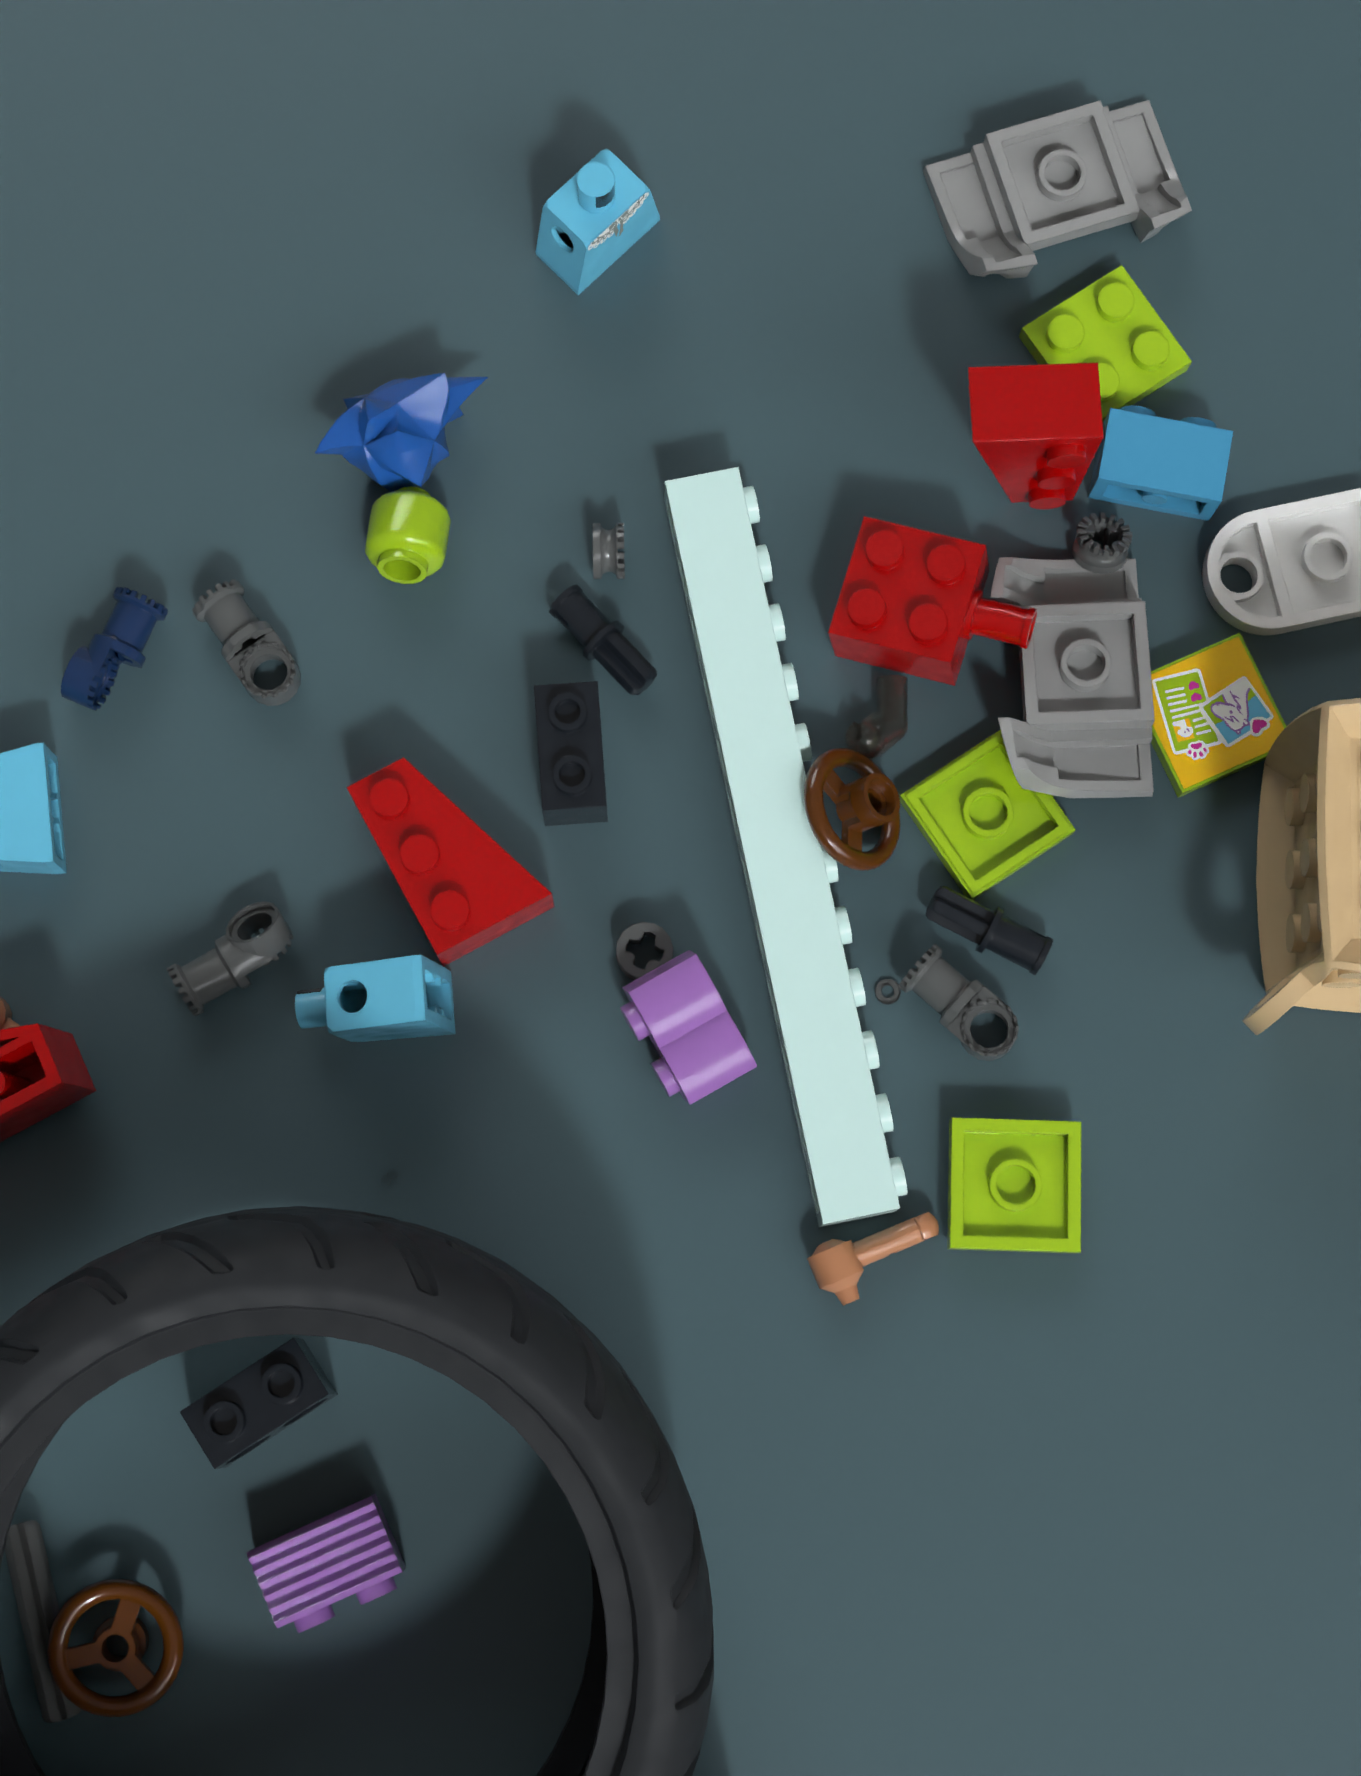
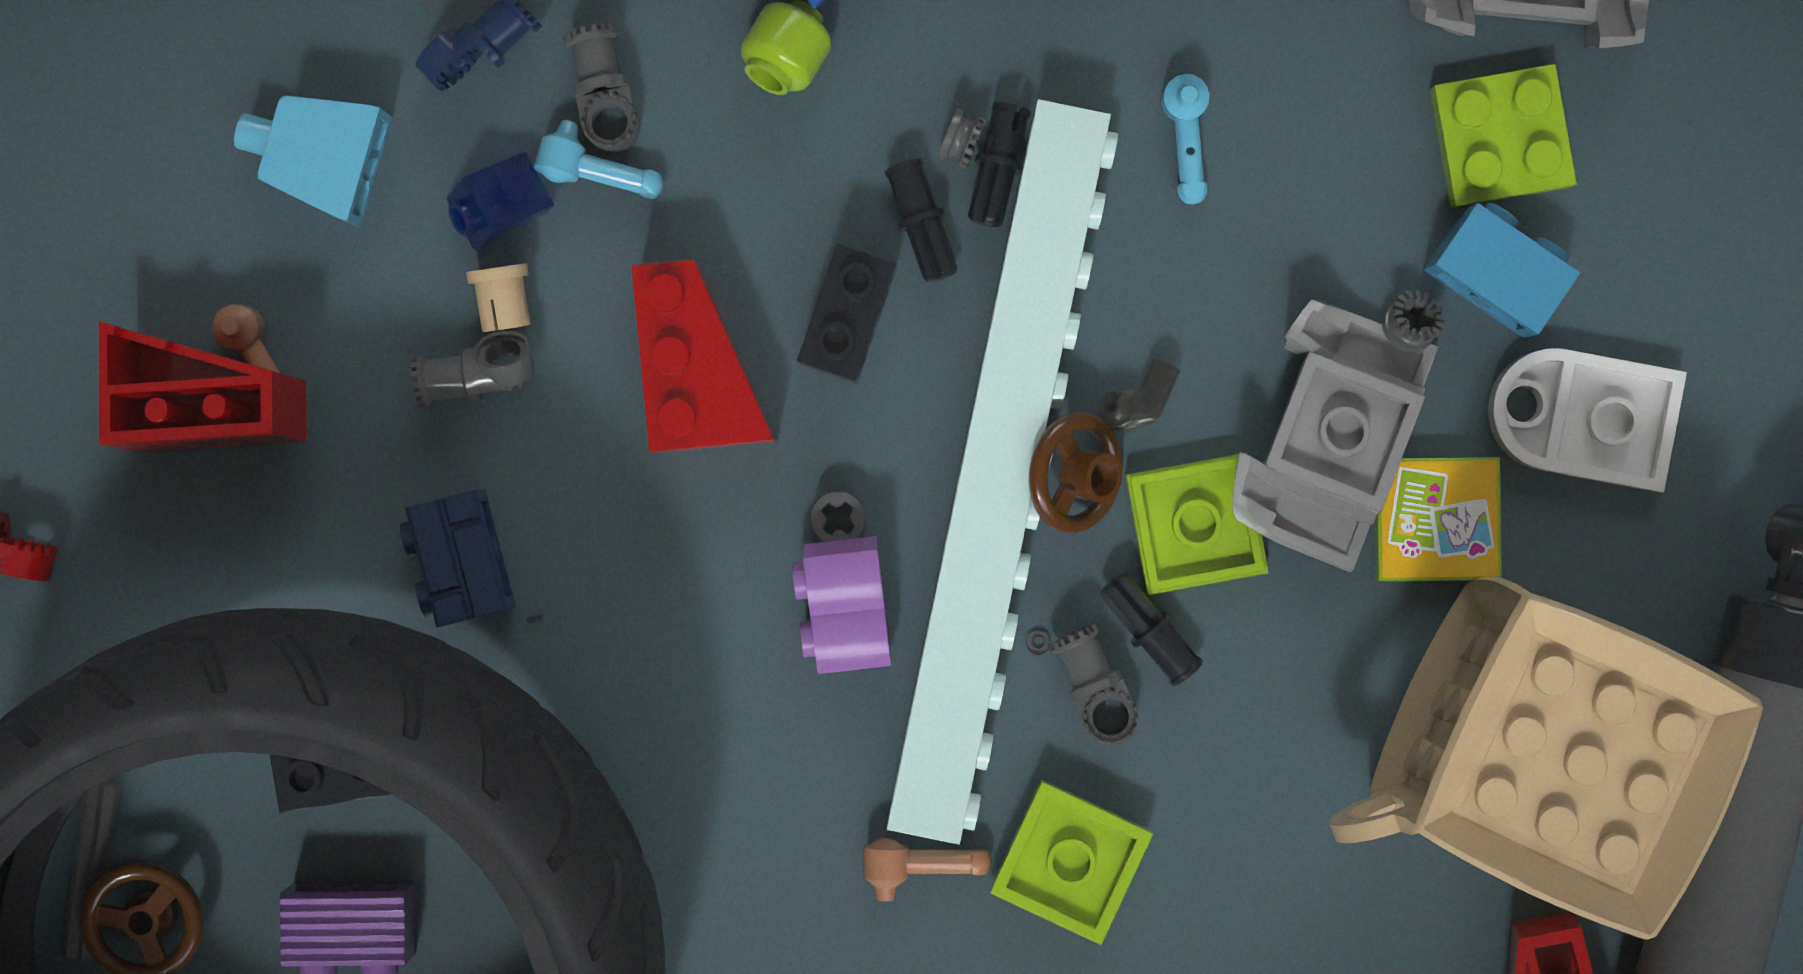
camera: 30 degrees right, 10 degrees up
(190, 789) = (497, 200): none -> clear blue bracket
(230, 875) = (501, 296): none -> tan bush
(239, 724) = (565, 160): none -> medium azure piece
(289, 1143) = (457, 558): none -> dark blue brick
(401, 996) = (585, 468): medium azure torso -> none
(653, 560) = (998, 164): none -> black axle
(799, 438) = (1184, 102): none -> medium azure piece
(918, 602) = (1220, 309): red brick -> none
(1037, 427) = (1396, 201): red wedge -> none

